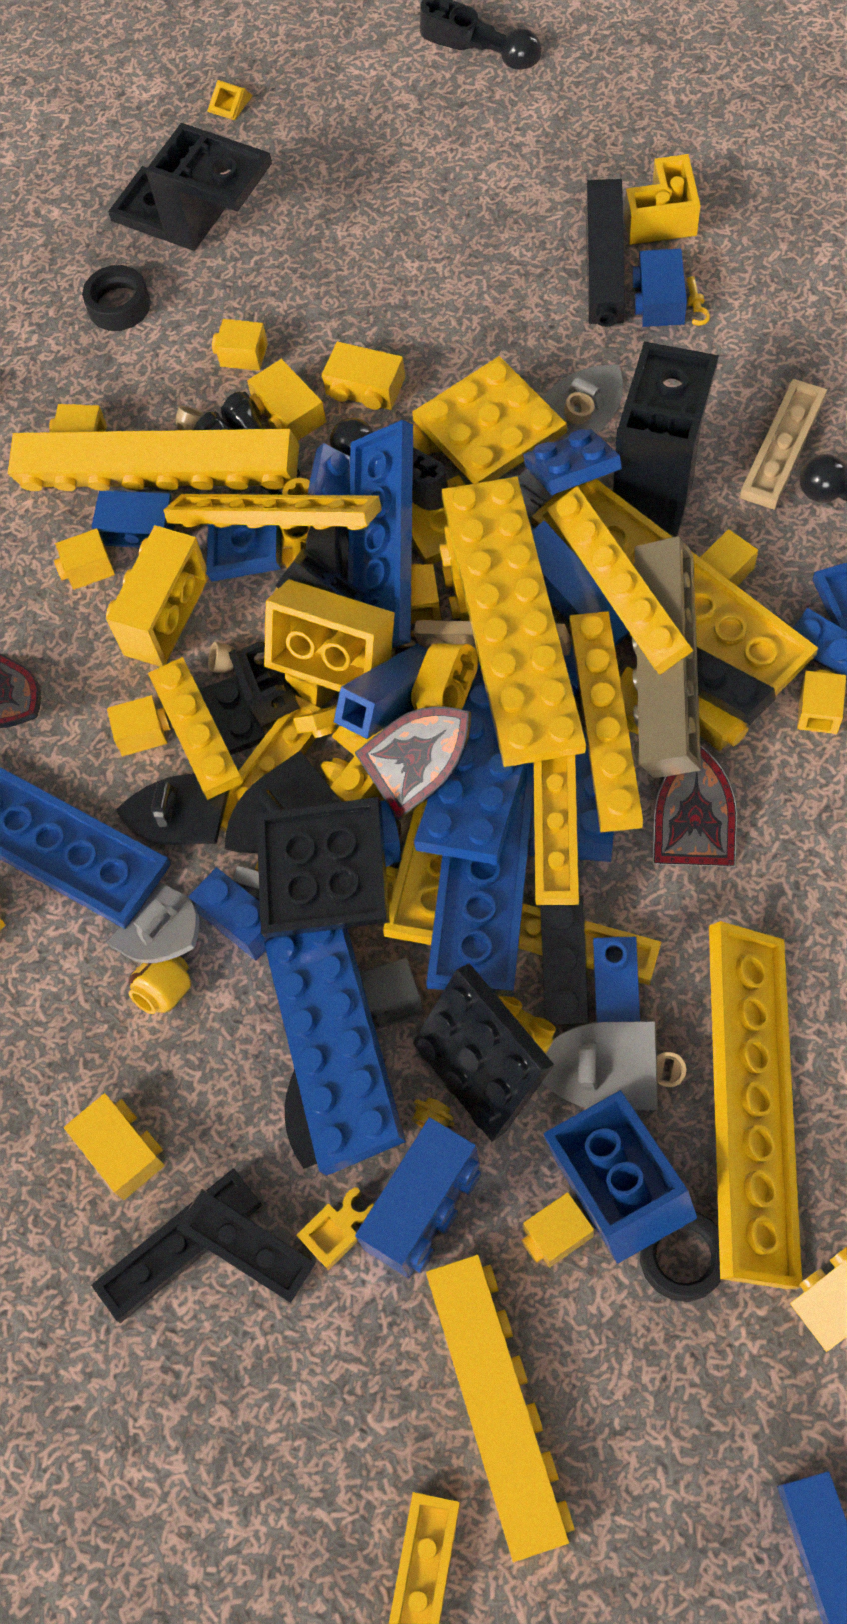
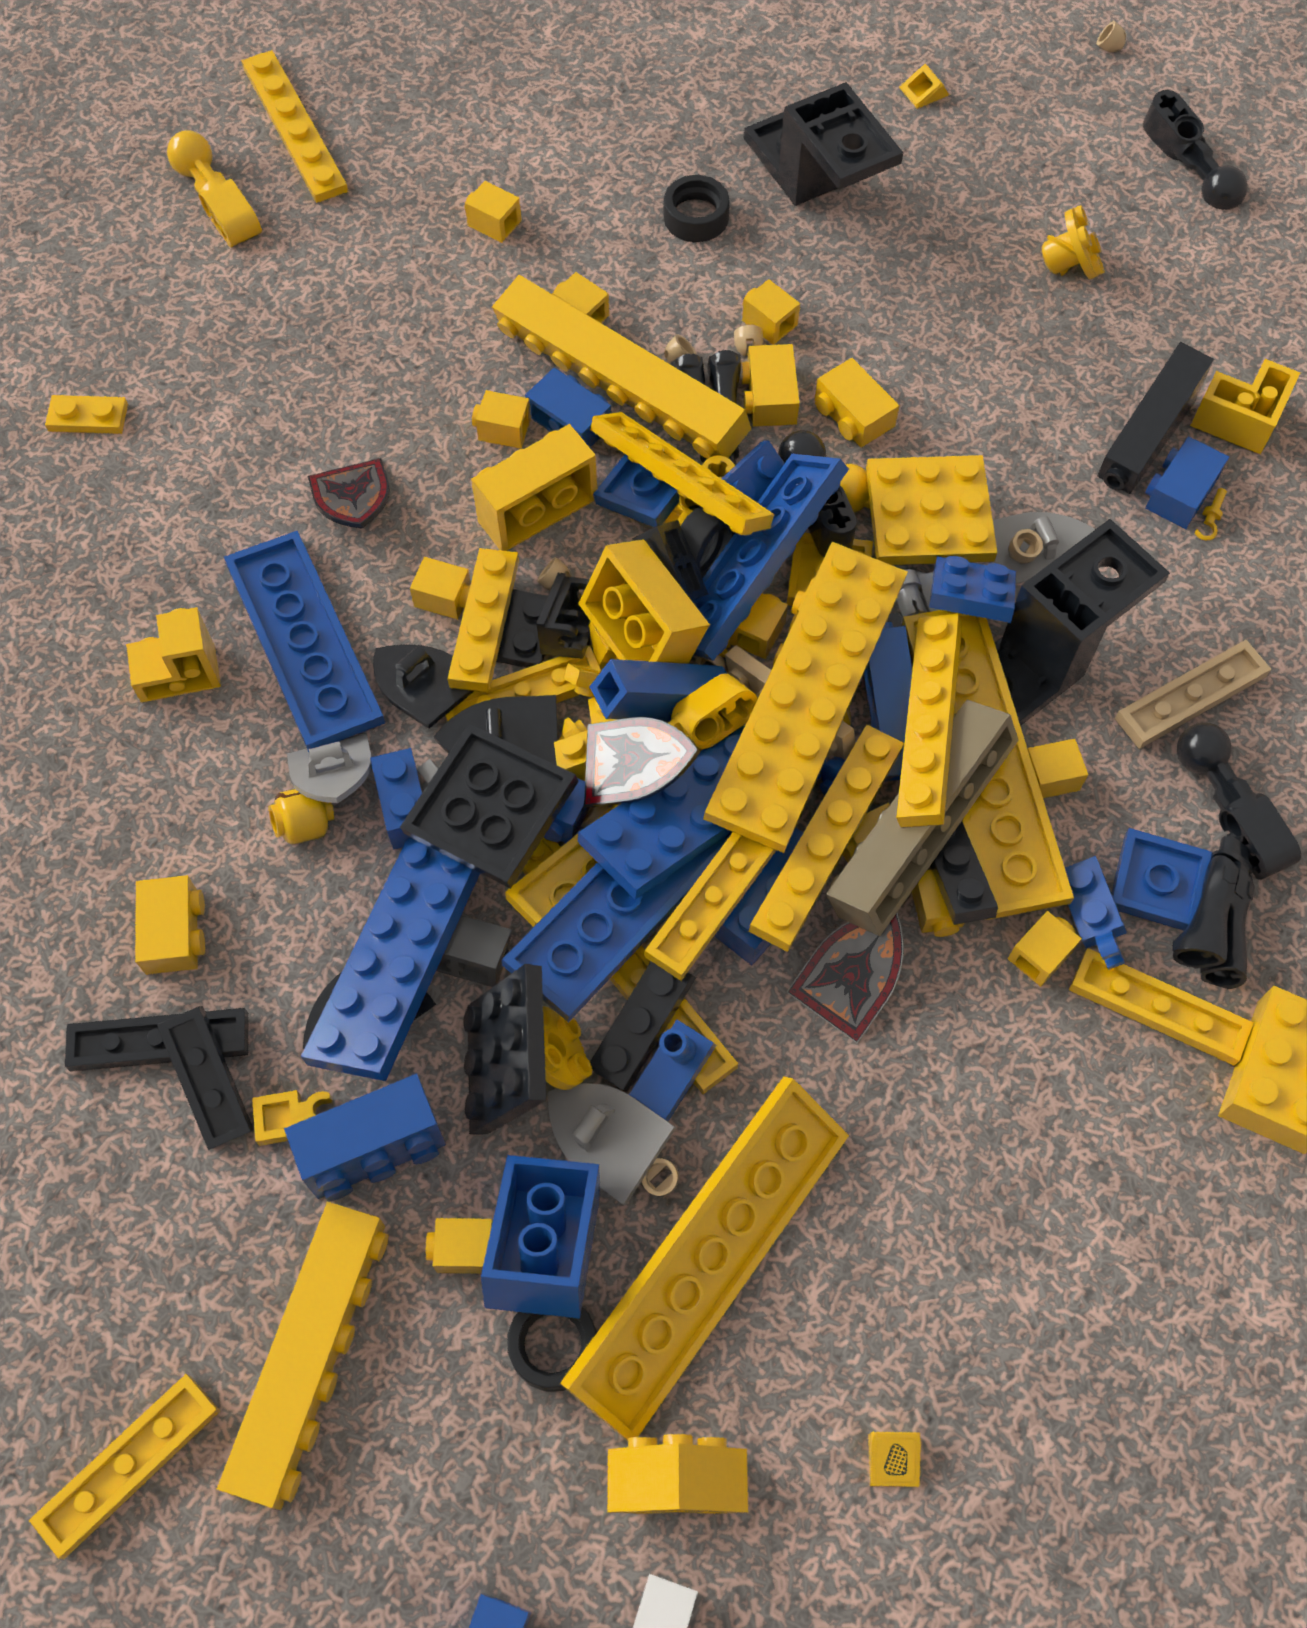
camera: 25 degrees right, 0 degrees up
(234, 373) = (747, 333): none -> tan hinge
(433, 1109) = (435, 1077): yellow plate -> none
(442, 158) = (1074, 247): none -> yellow plate

